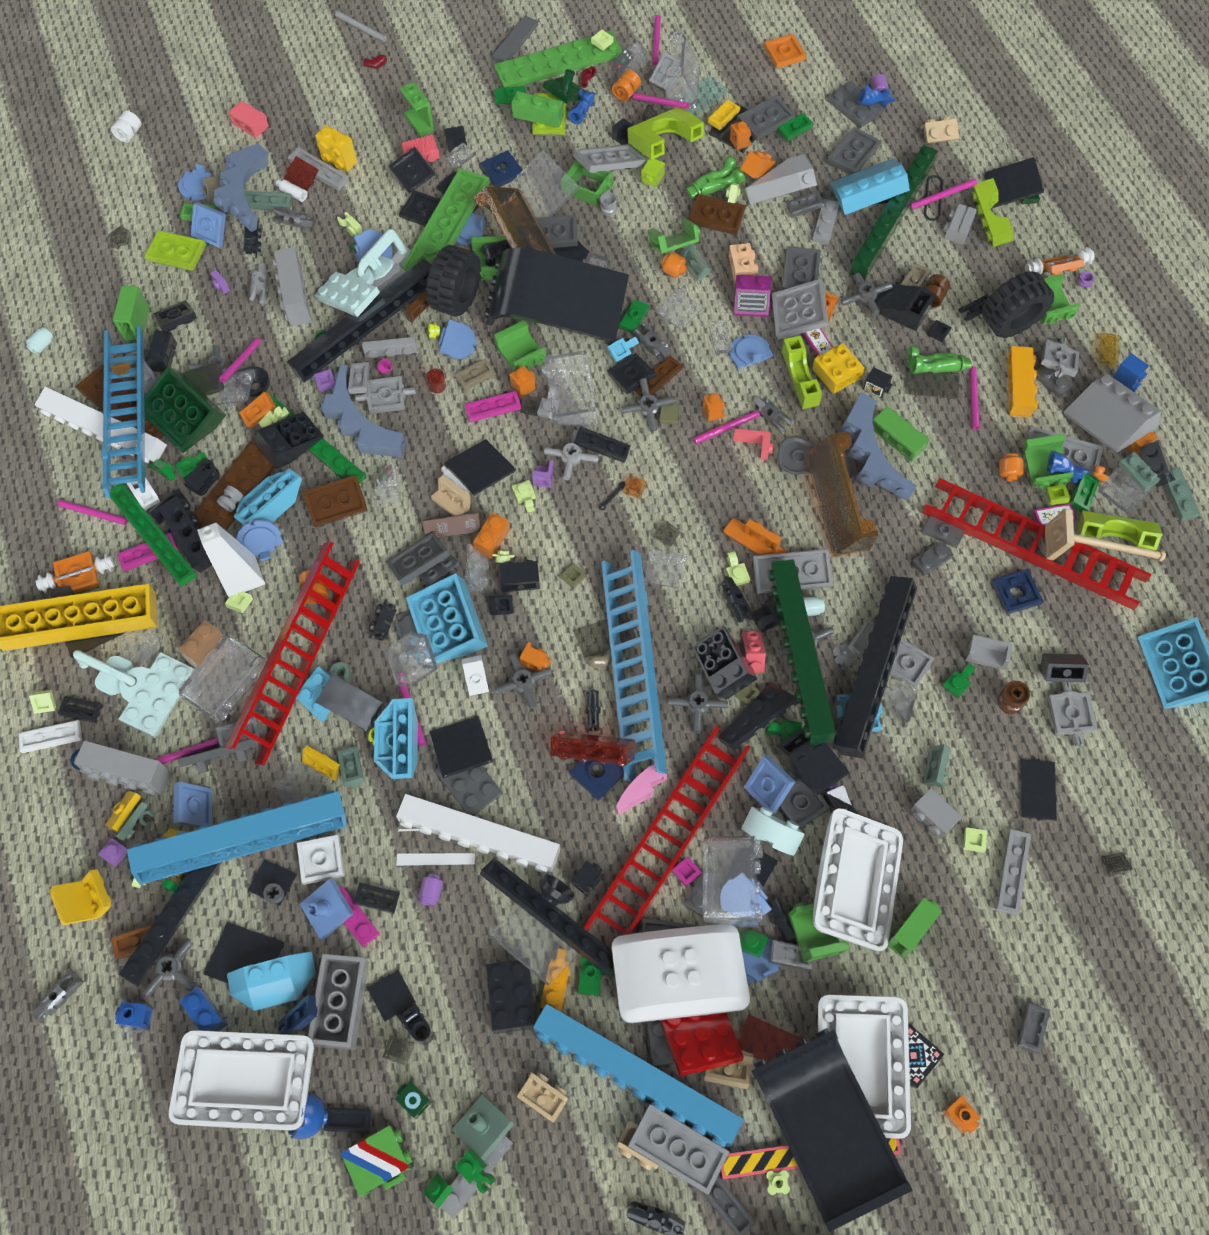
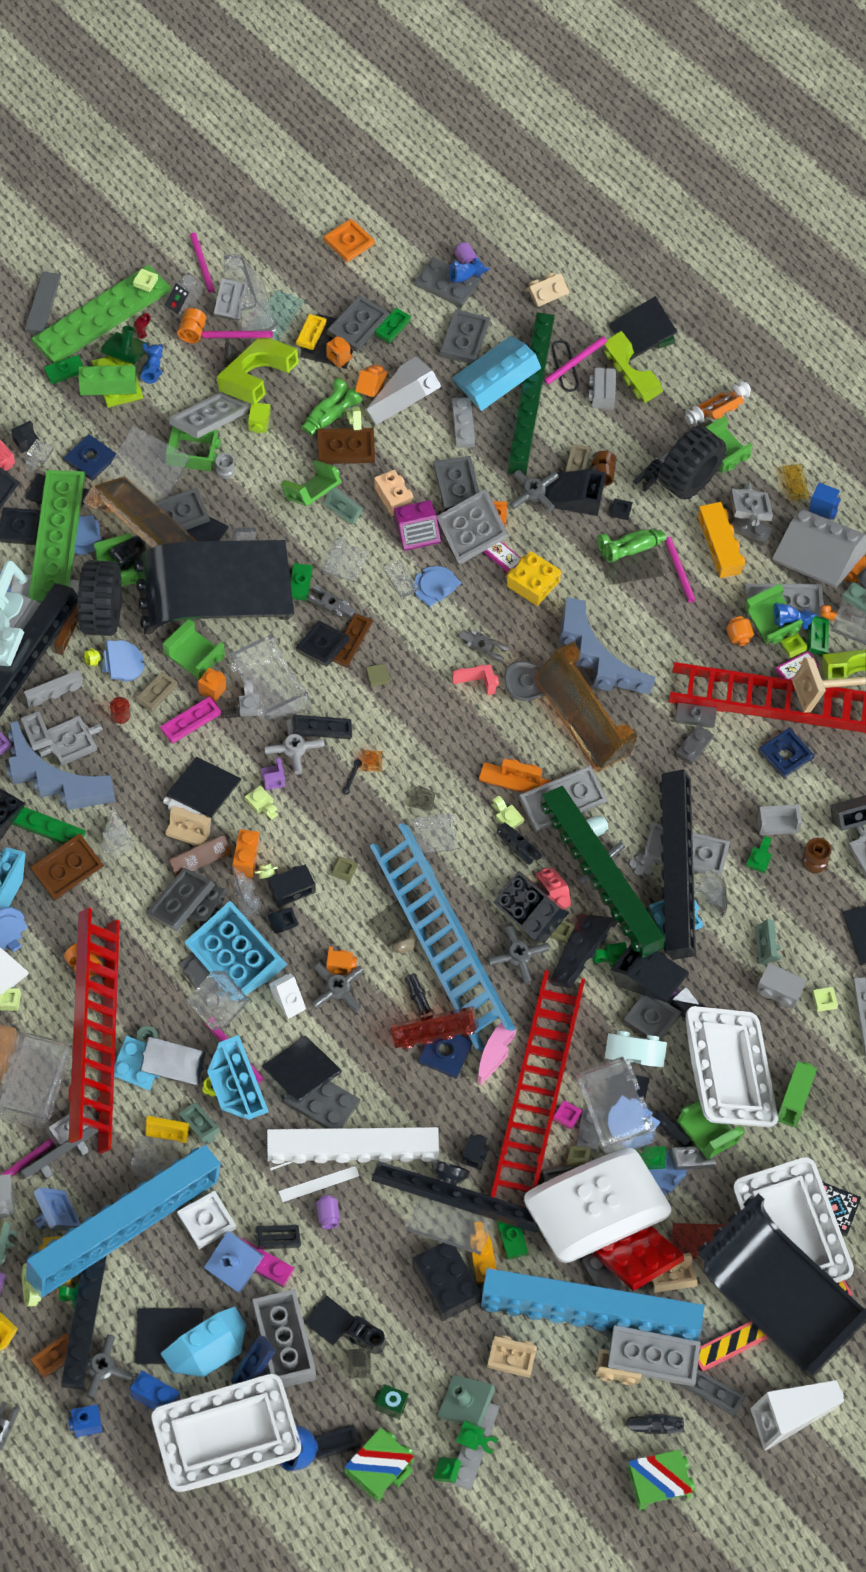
camera: 25 degrees left, 5 degrees down
(269, 874) = (166, 1258): black piece -> none
(269, 889) = (174, 1258): dark grey bush -> none
(384, 613) = (166, 964): black hinge -> none
(386, 368) = (55, 711): dark pink hinge -> none
(620, 131) = (207, 380): black panel -> none
(620, 348) = (301, 620): medium azure plate -> none
(652, 400) = (355, 666): dark grey bar -> none
(674, 264) = (322, 514): orange head -> none
(682, 916) = (578, 1155): none -> olive tile
(713, 407) = (423, 652): orange brick -> none
(723, 428) = (441, 671): dark pink bar -> none
(766, 617) = (553, 851): black panel -> none
(769, 784) = (616, 1007): medium blue tile -> none
(783, 1187) = (748, 1360): yellowish green plate -> none
(796, 361) = (486, 579): lime arch -> none
(805, 204) = (435, 410): flat silver plate -> none
(878, 383) = (579, 582): black brick -> none
(900, 434) = (619, 628): bright green brick -> none
(1088, 276) = (749, 409): medium lavender plate -> none

